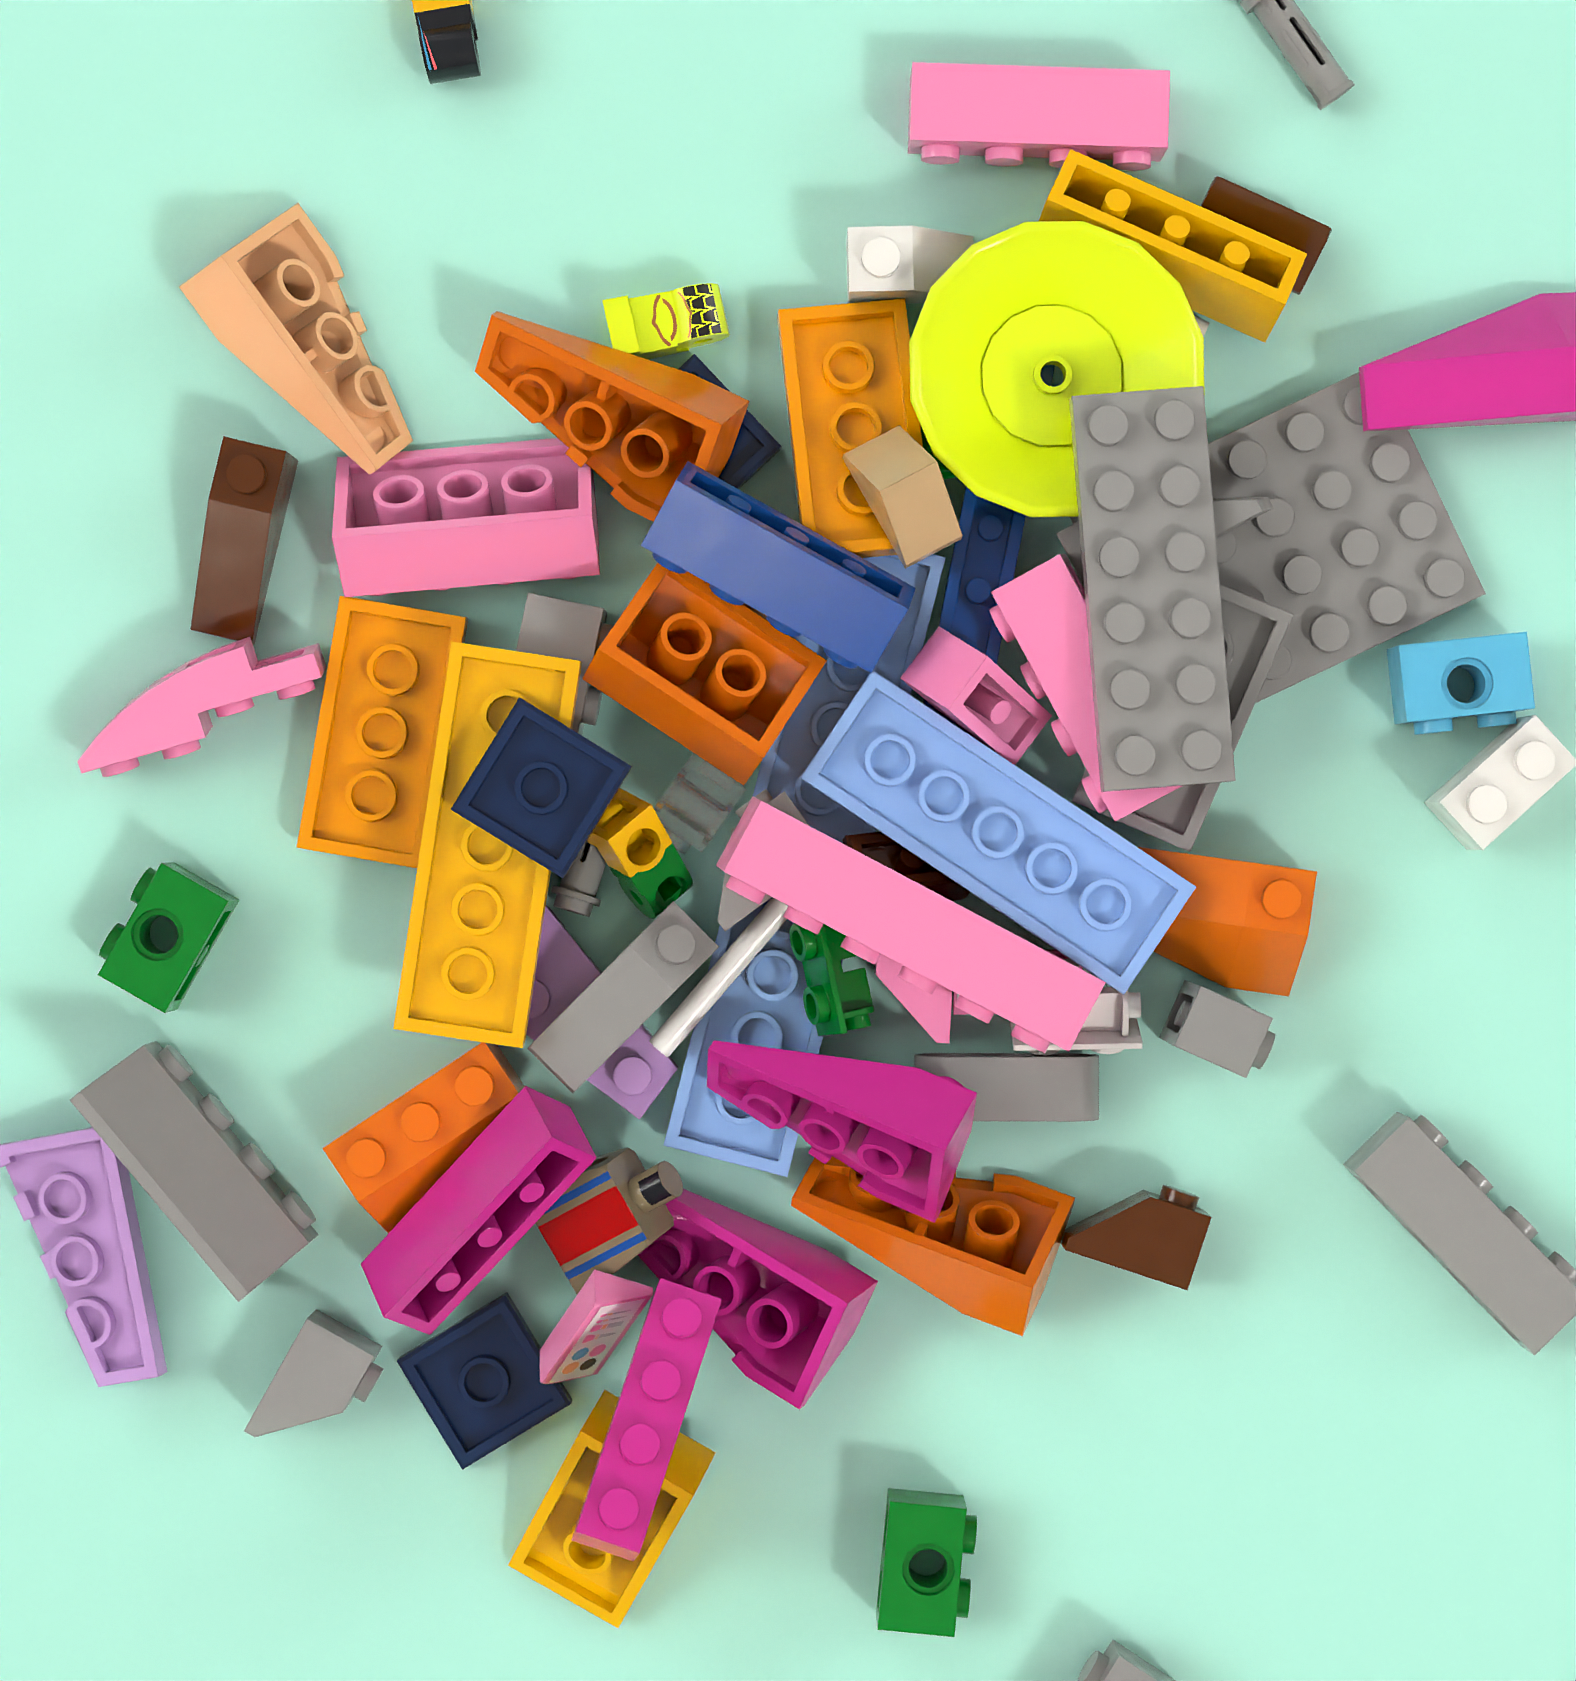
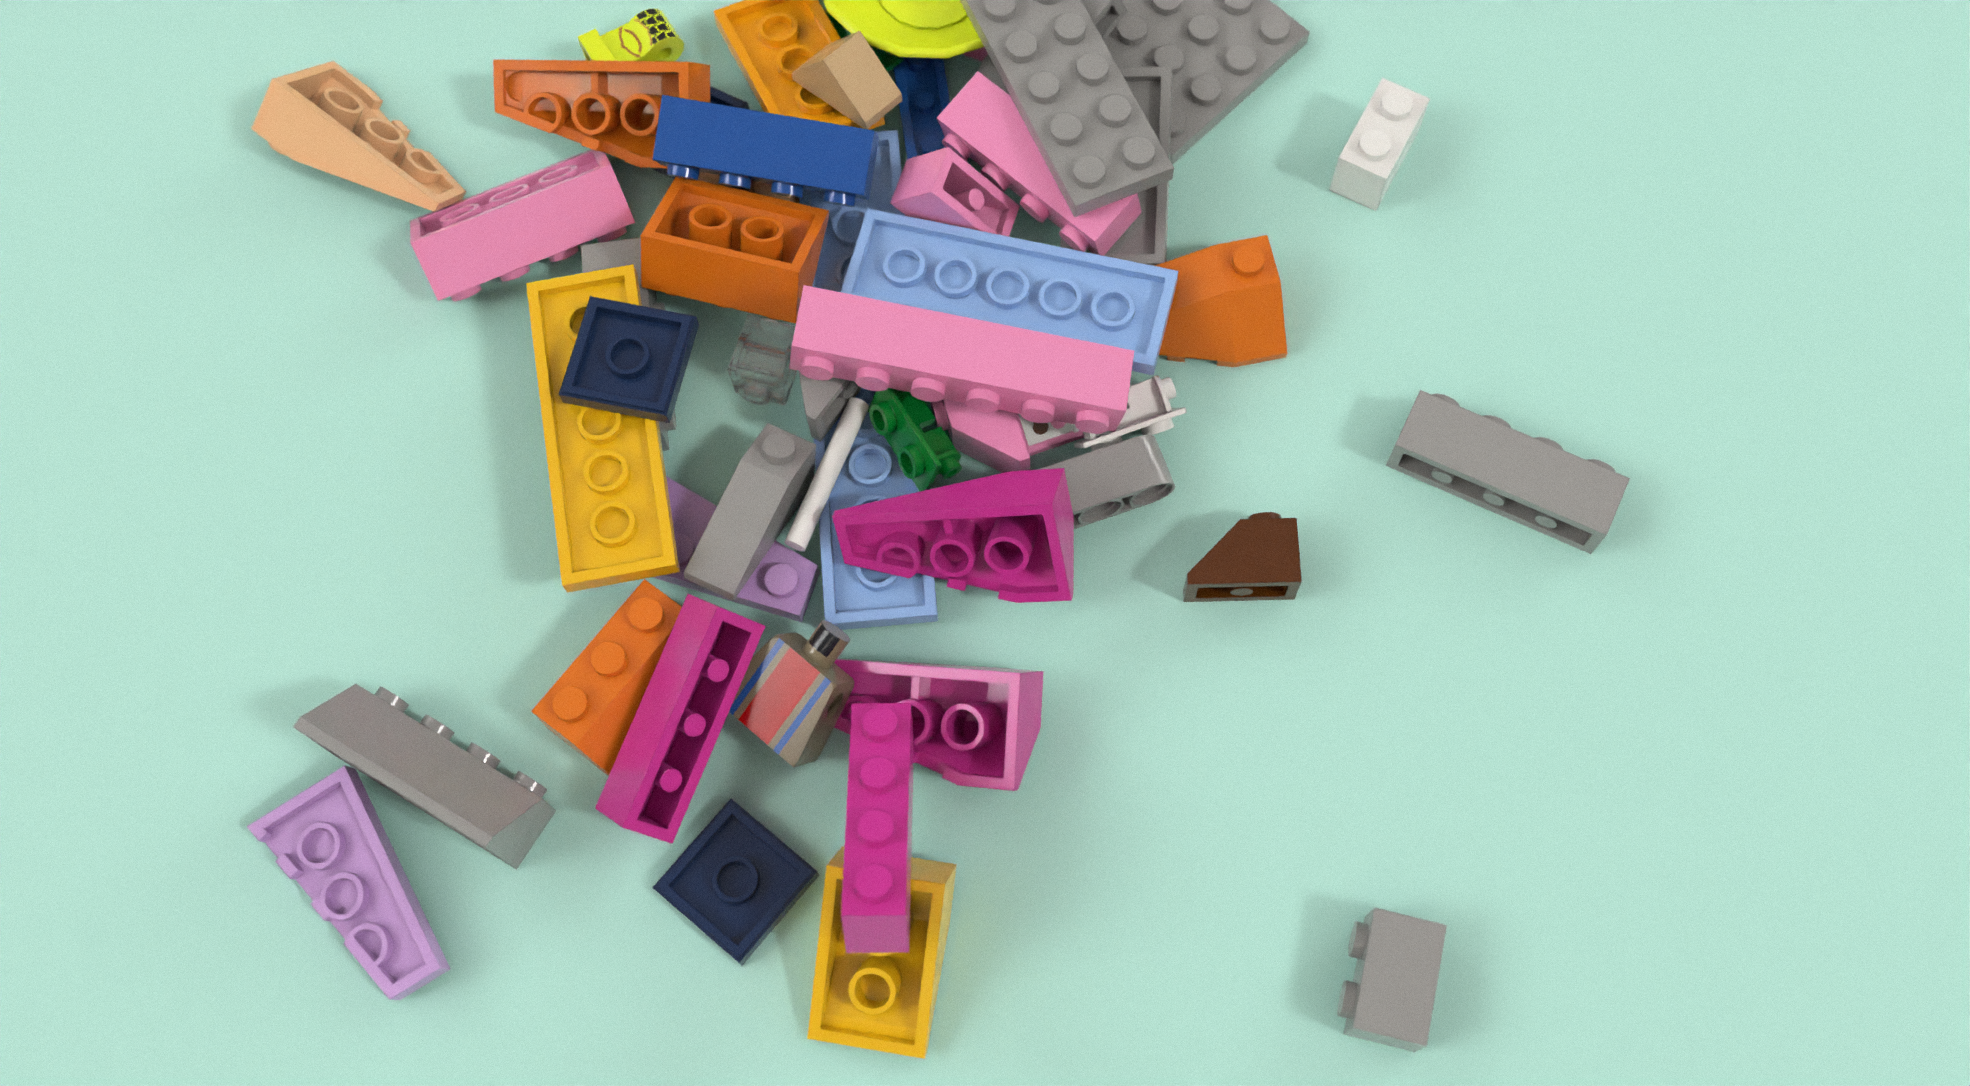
camera: 15 degrees left, 20 degrees down
(175, 708) = (318, 425): bright pink slope -> none
(199, 914) = (369, 629): green brick -> none
(241, 537) = (346, 289): reddish brown slope -> none
(317, 1376) = (583, 924): light grey slope -> none
(377, 731) = (490, 397): light orange plate -> none
(581, 883) = (691, 447): light grey pin -> none
(592, 1327) = (813, 788): slope -> none
(640, 854) = (728, 402): yellow leg -> none
(918, 1601) = (1166, 932): green brick -> none
(981, 1254) = (1113, 621): orange wedge -> none
(1218, 1029) = (1241, 374): light grey brick -> none
(1499, 674) = (1333, 68): medium azure brick -> none

